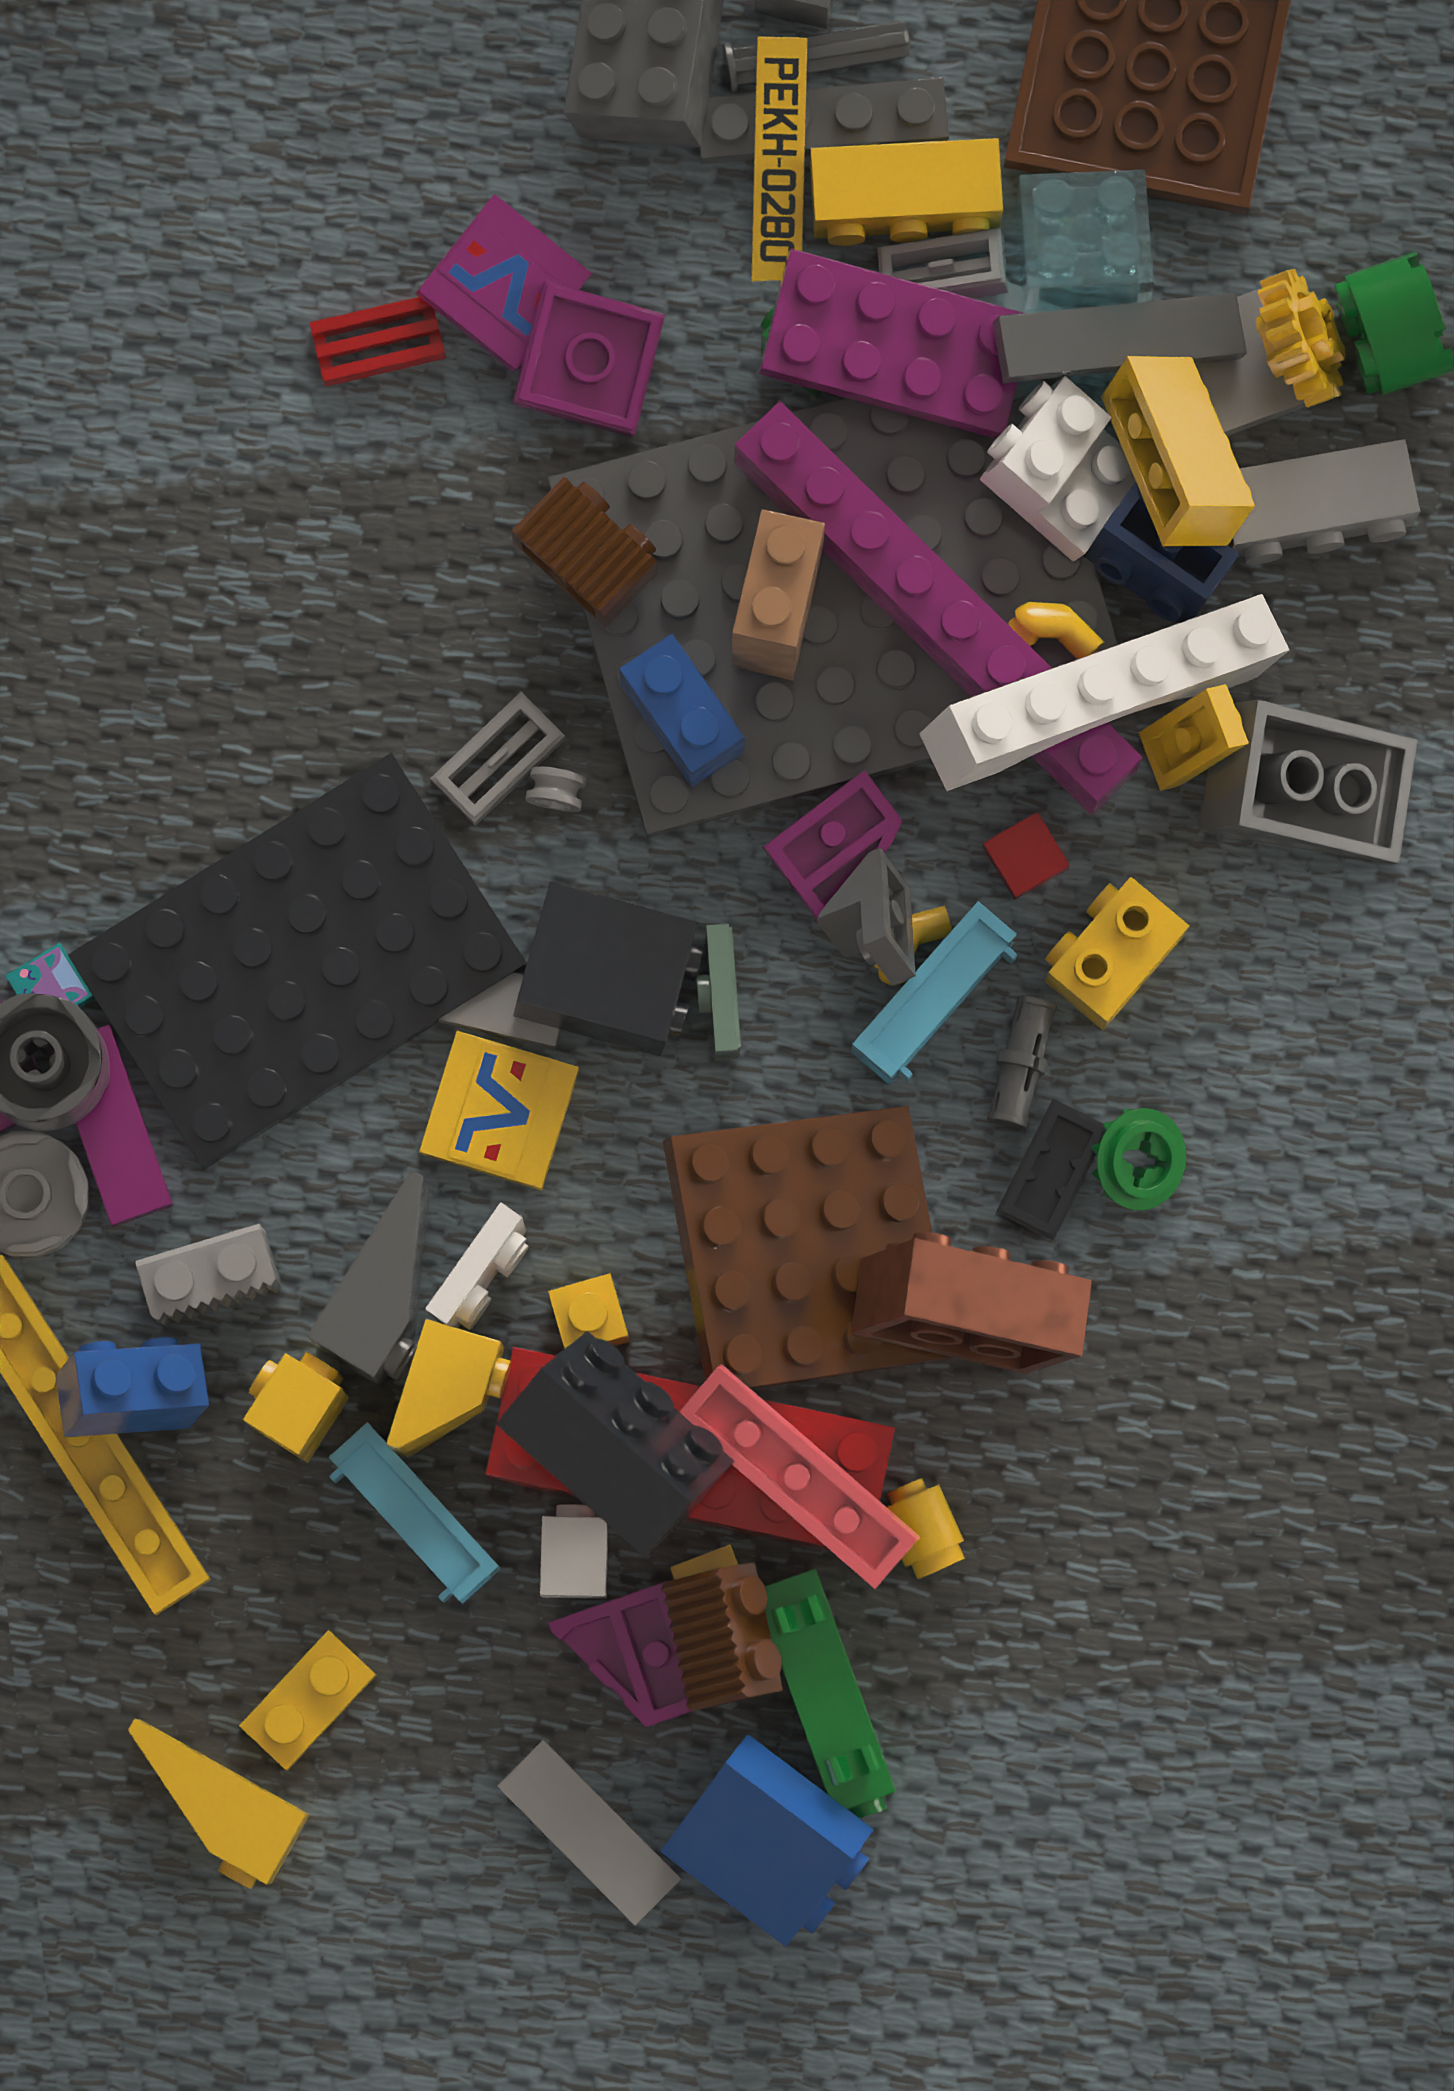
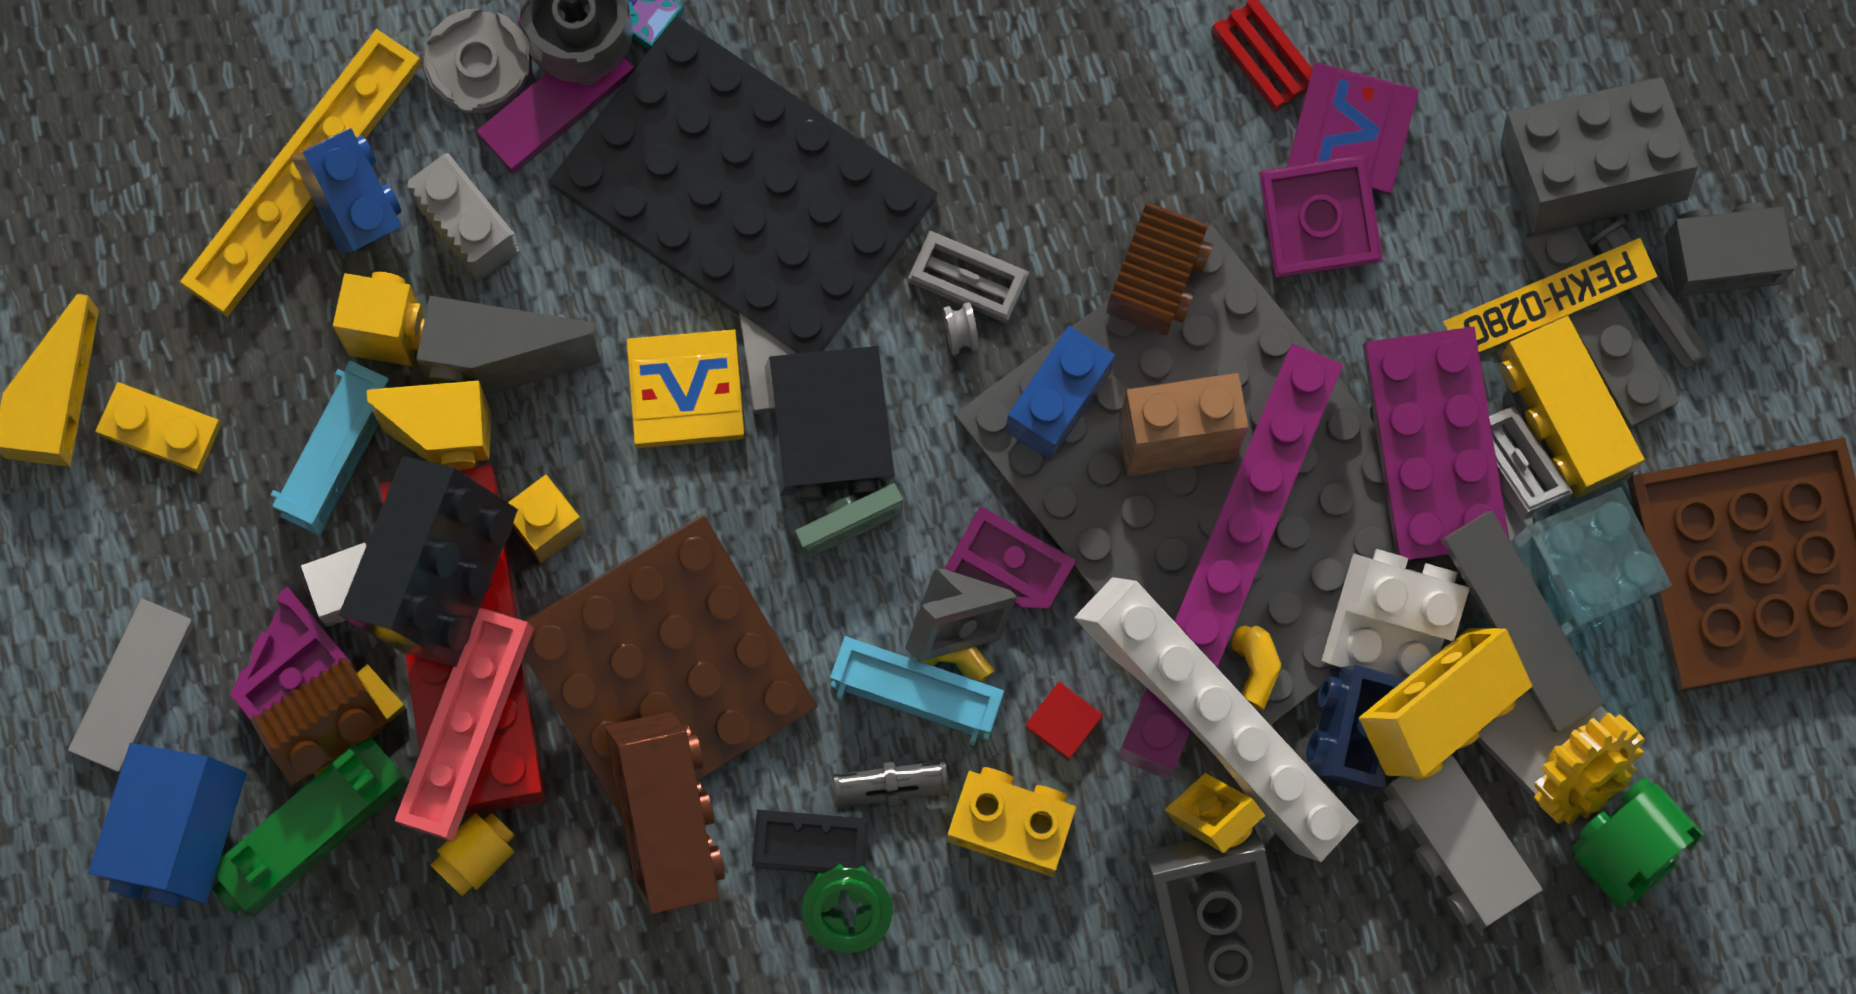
camera: 65 degrees right, 5 degrees down
(494, 1250) = (529, 410): white plate -> none

